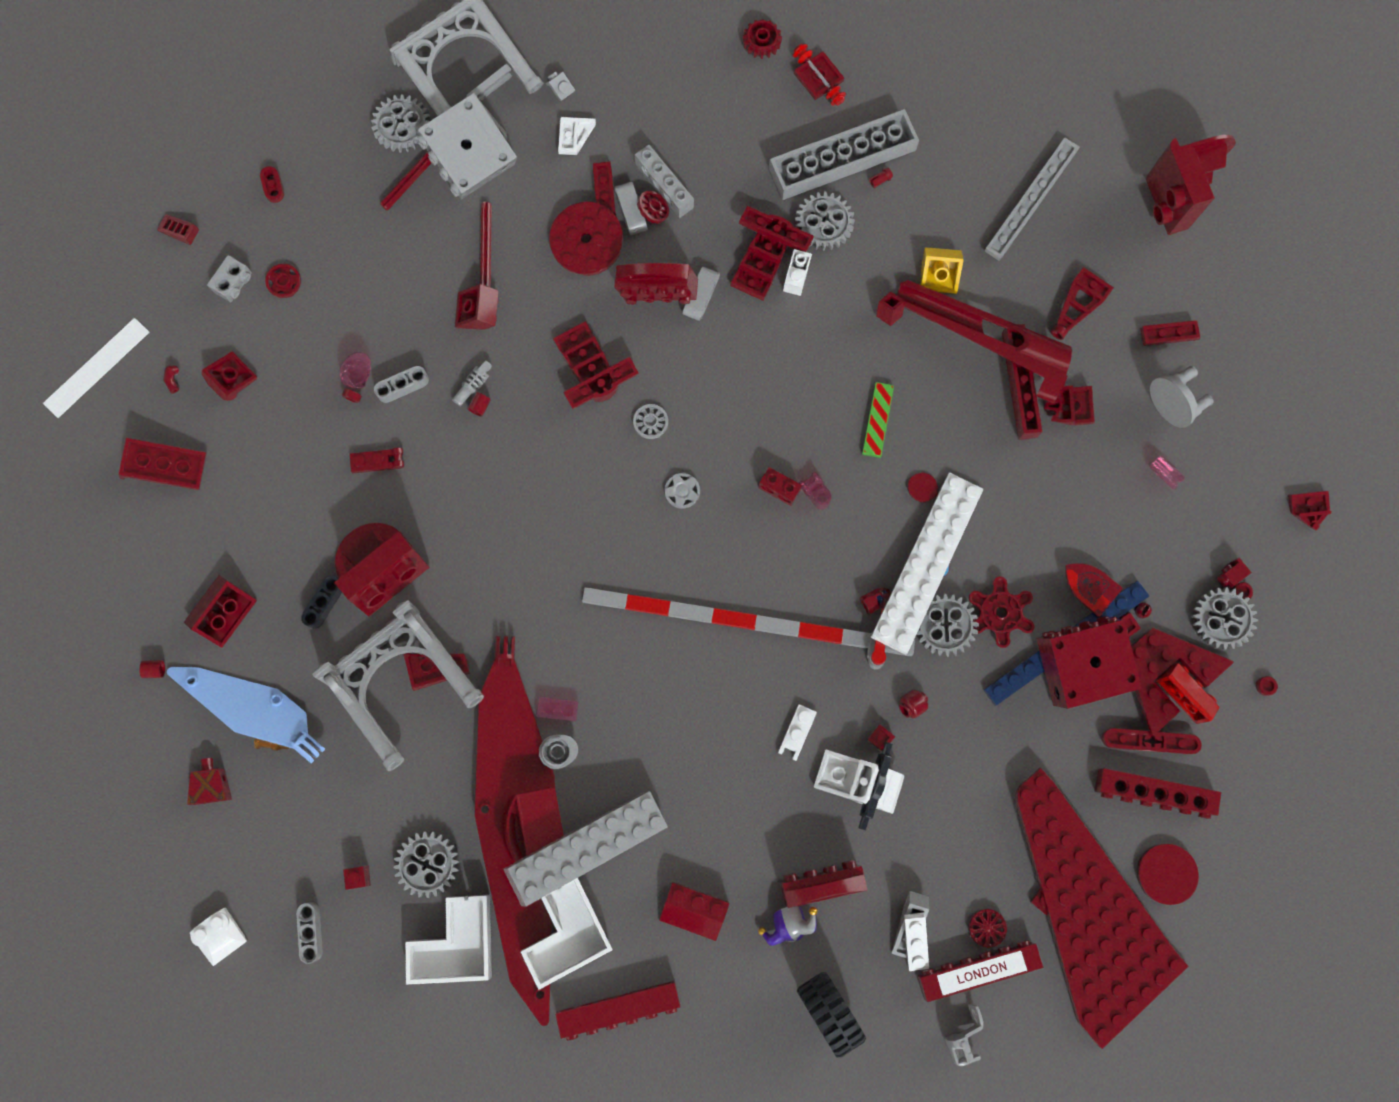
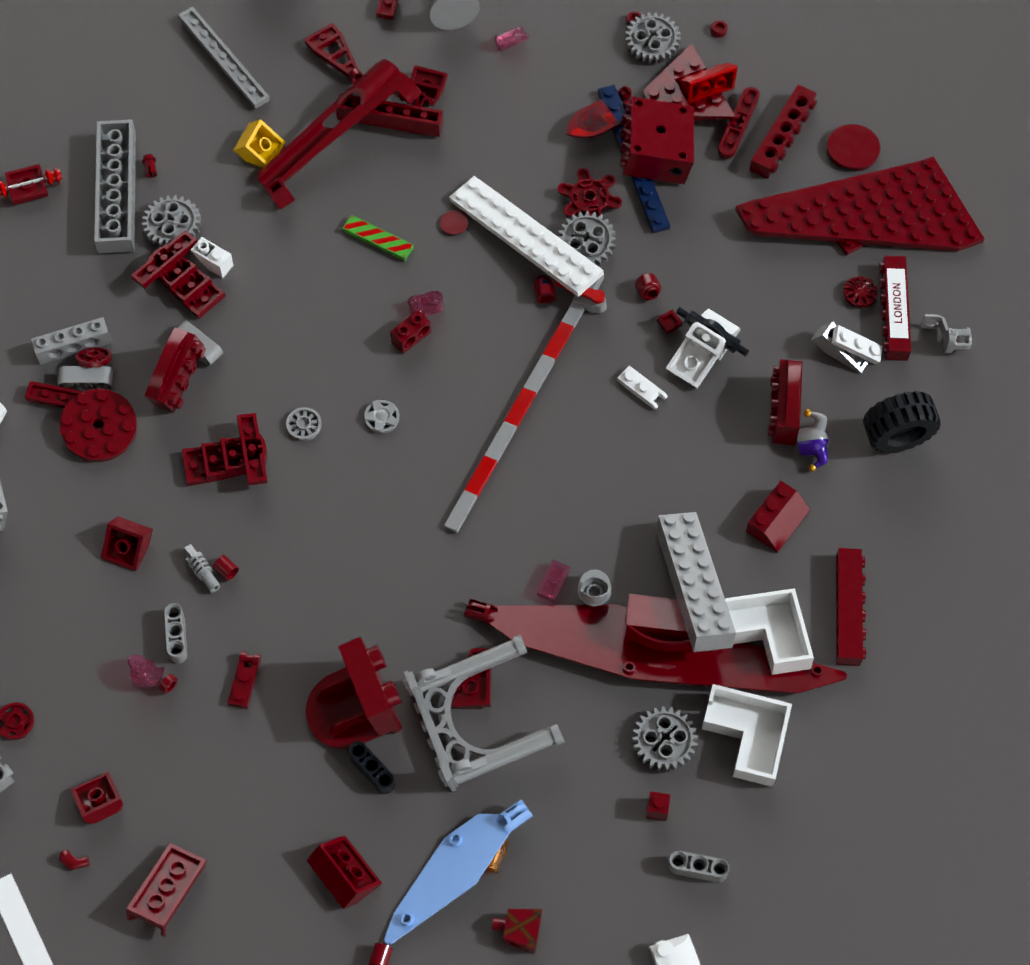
camera: 70 degrees left, 15 degrees down
(485, 256) = (63, 518): dark red axle -> none
(1233, 573) = (616, 19): dark red brick -> none

